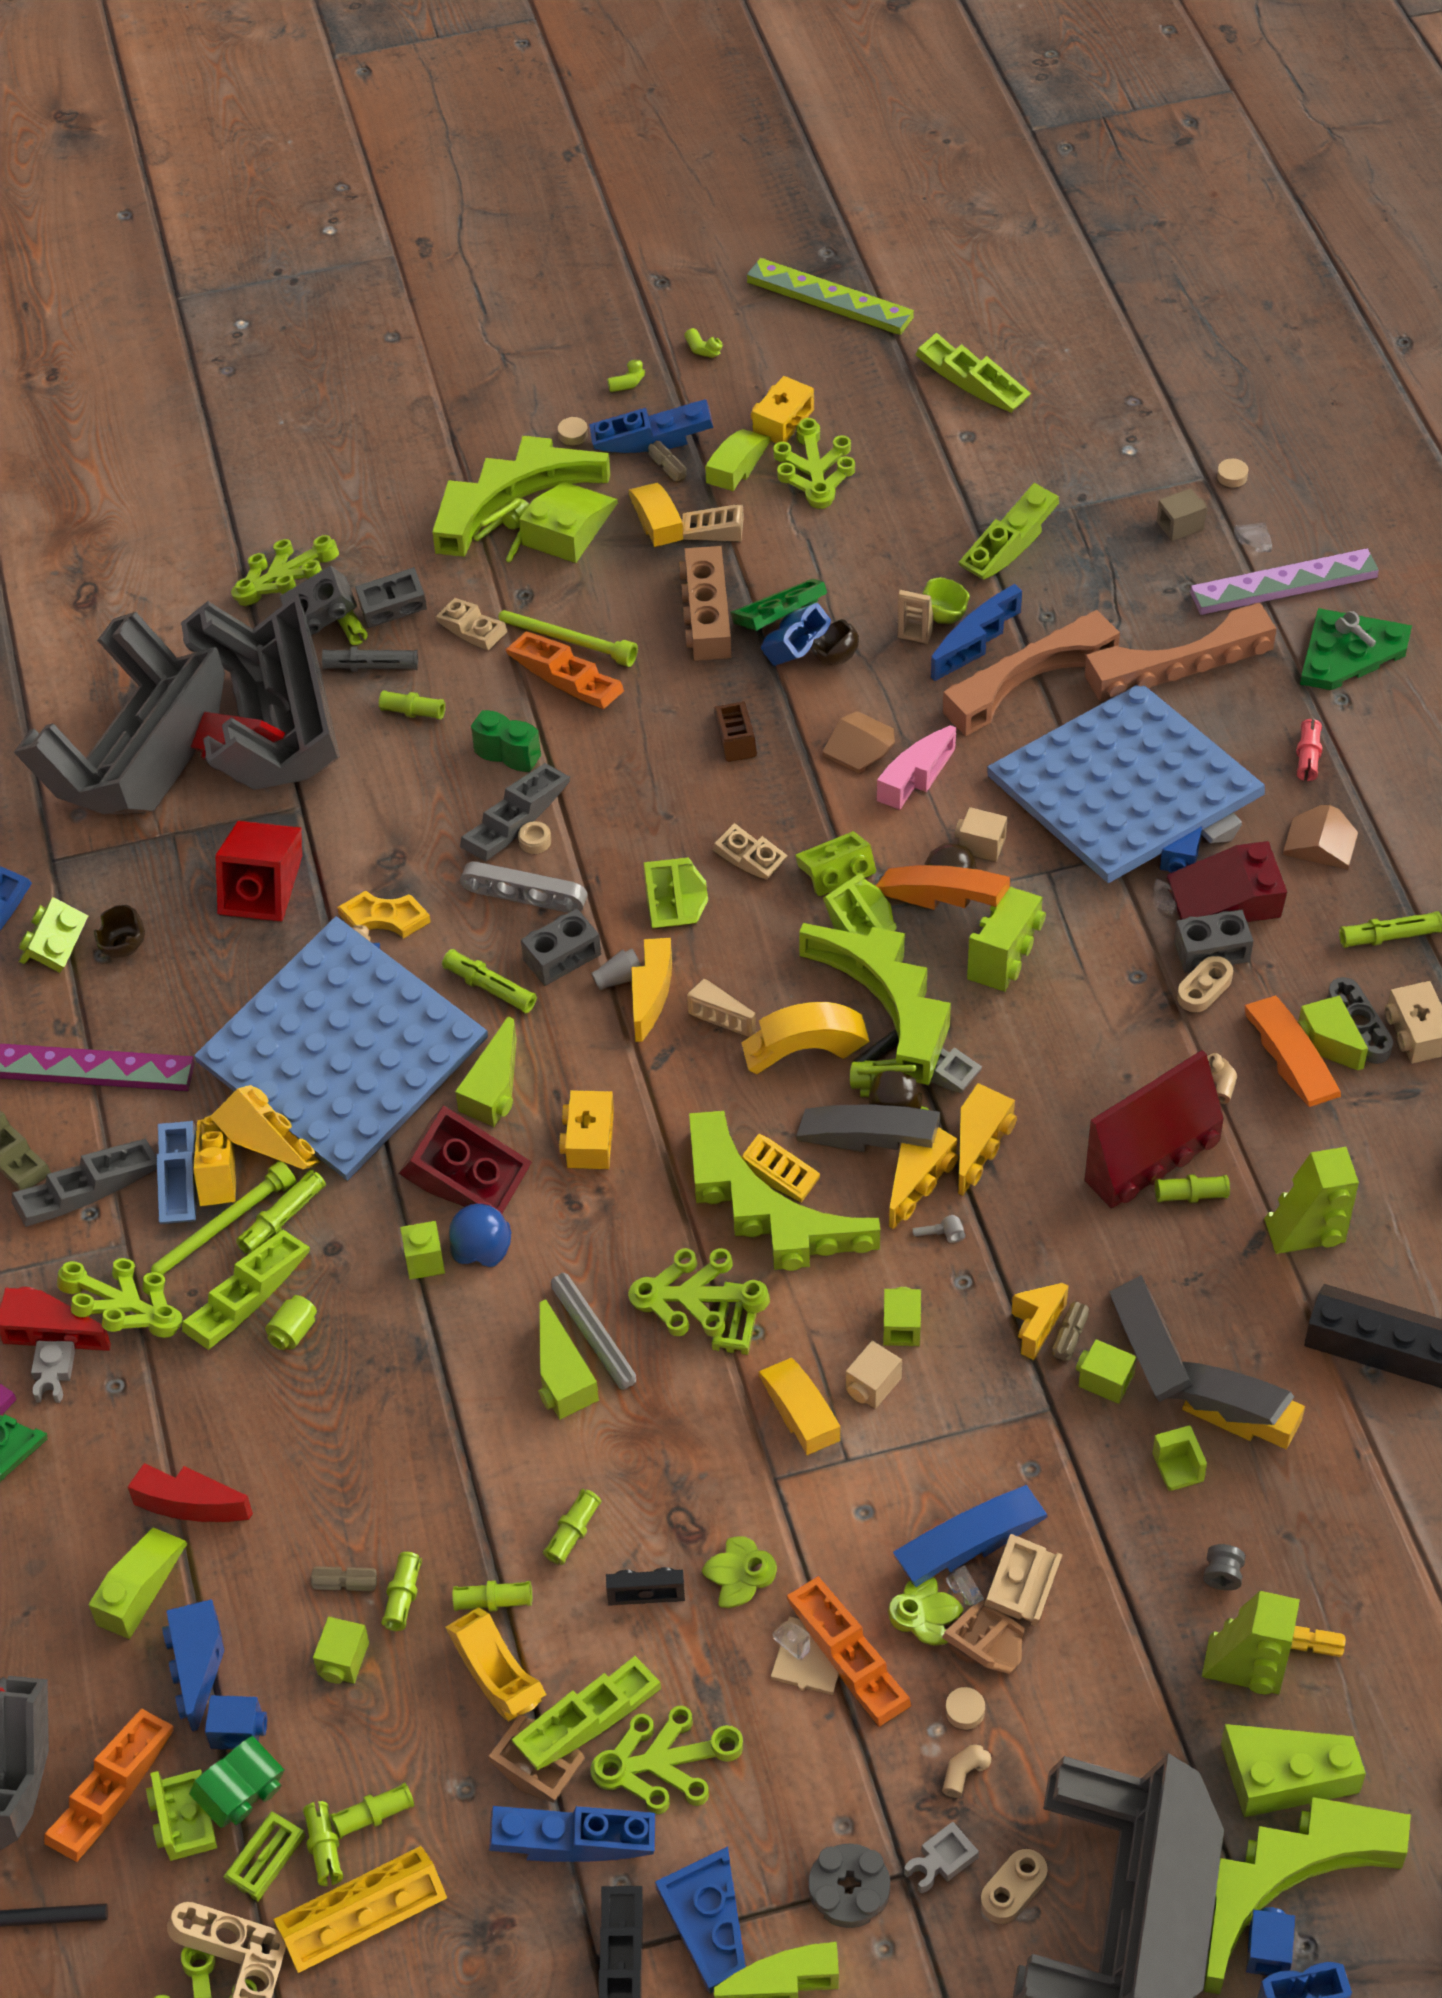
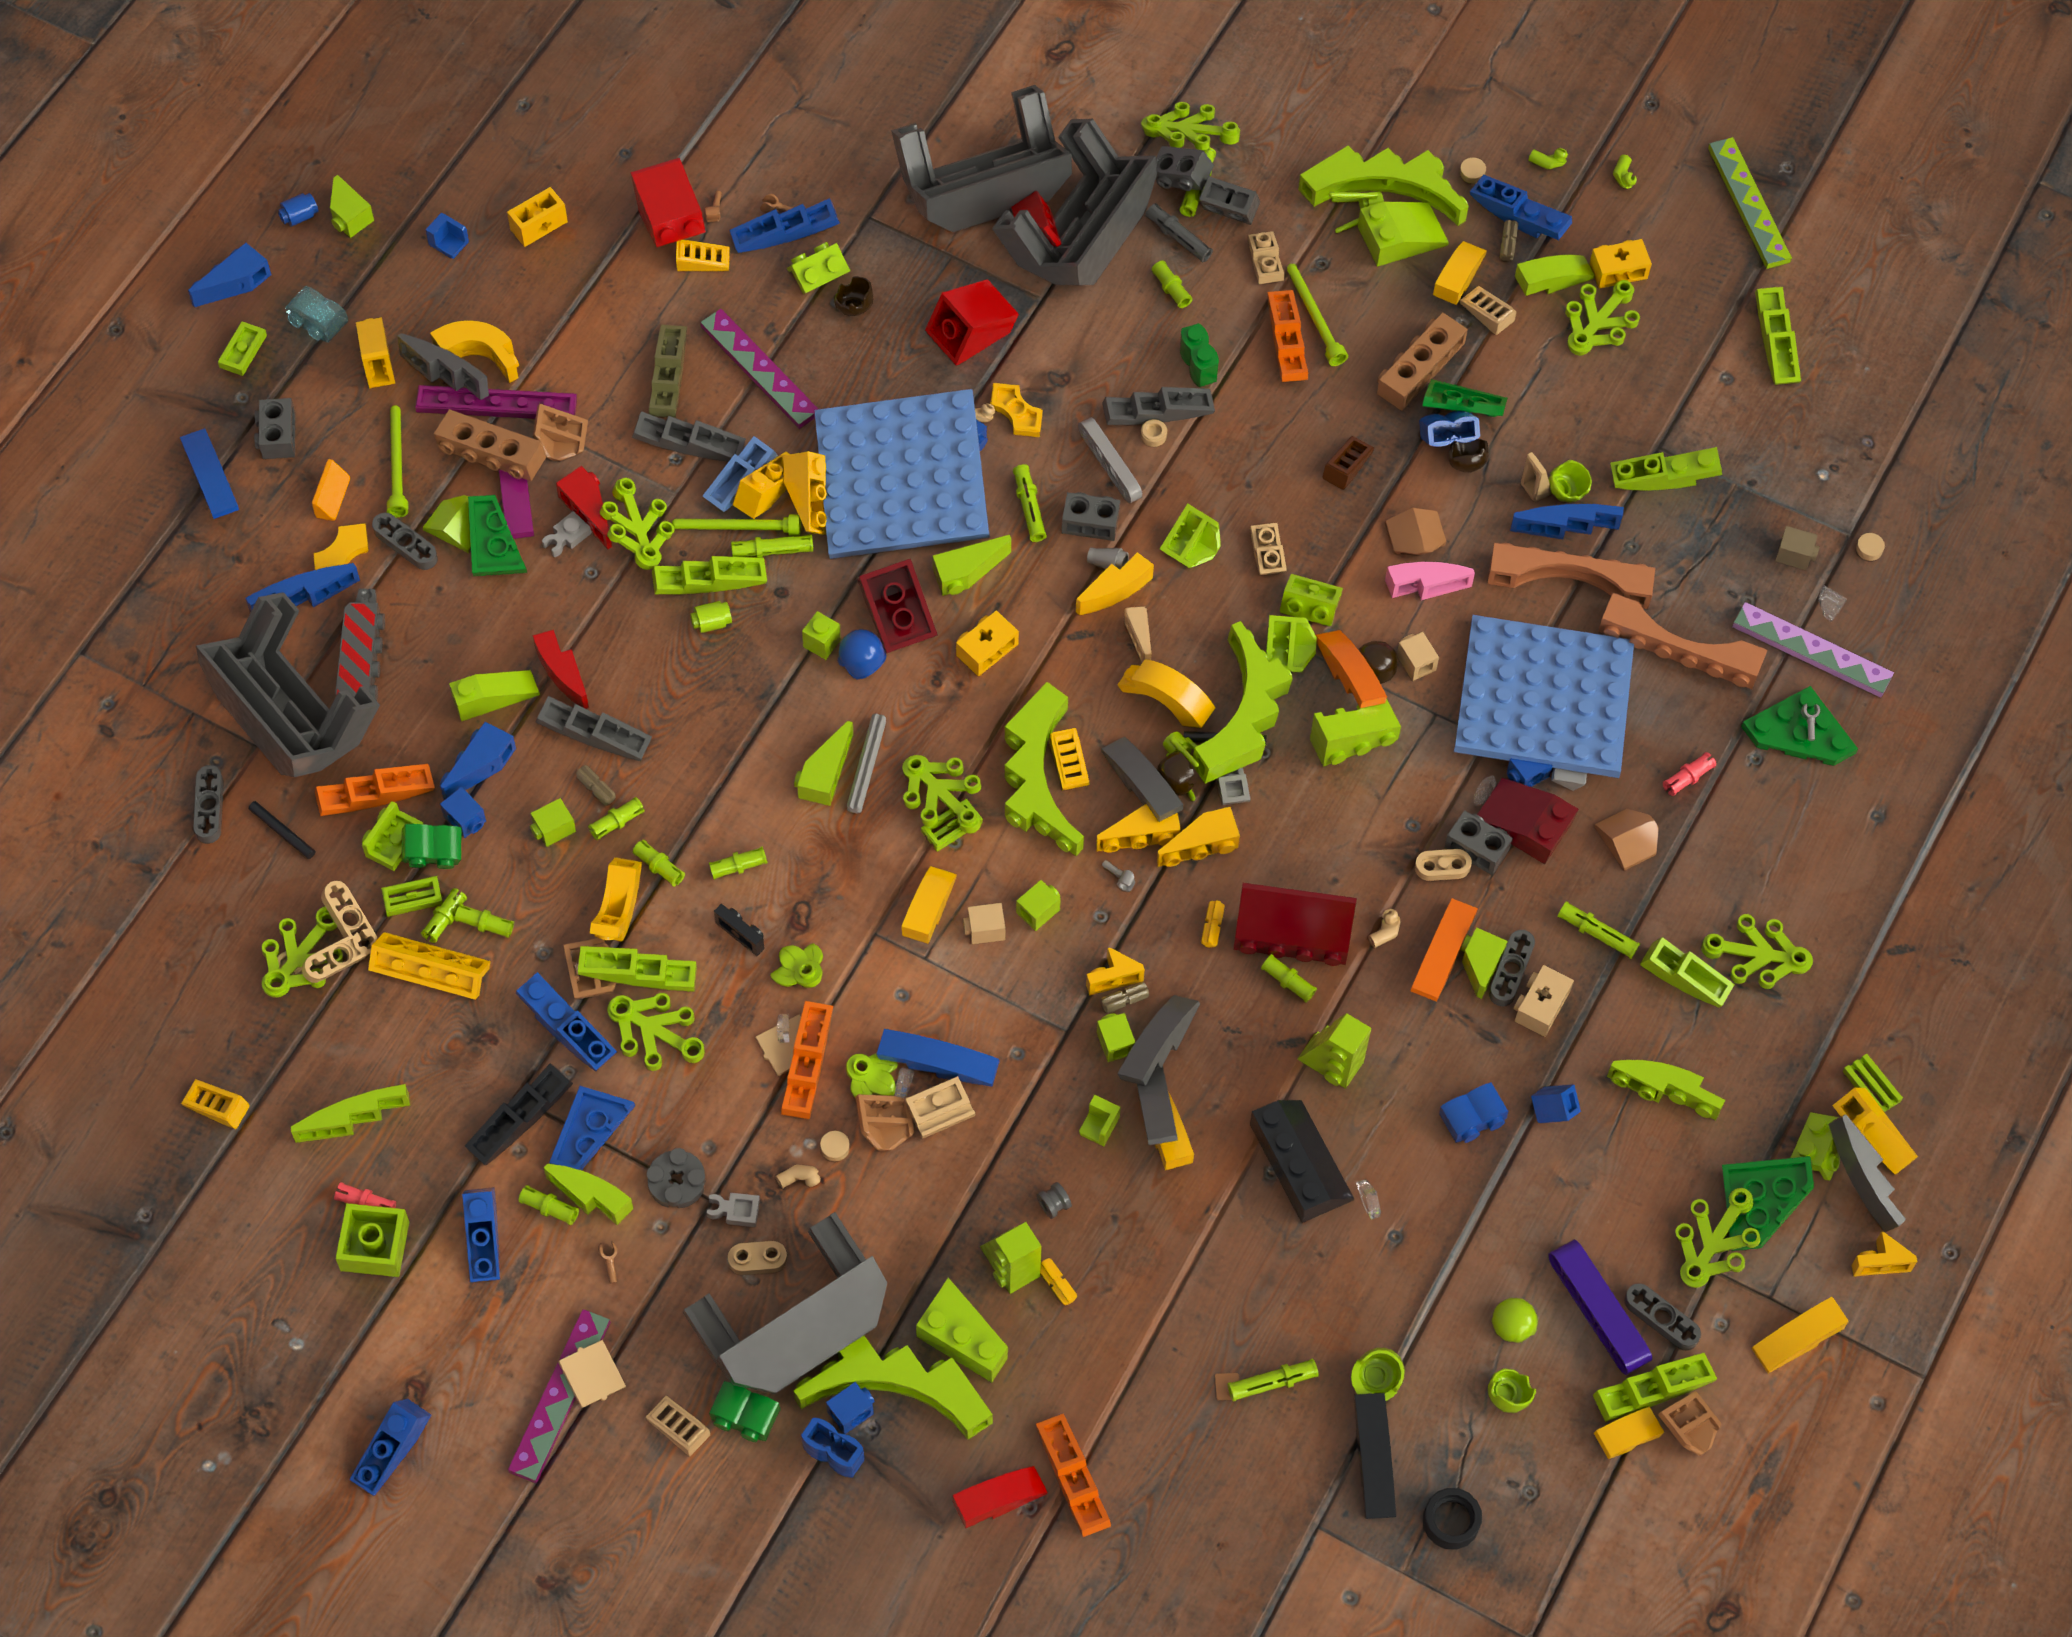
camera: 40 degrees right, 10 degrees up
(283, 1528) = (594, 730): none -> dark grey slope
(1074, 1204) = (1211, 929): none -> yellow piece

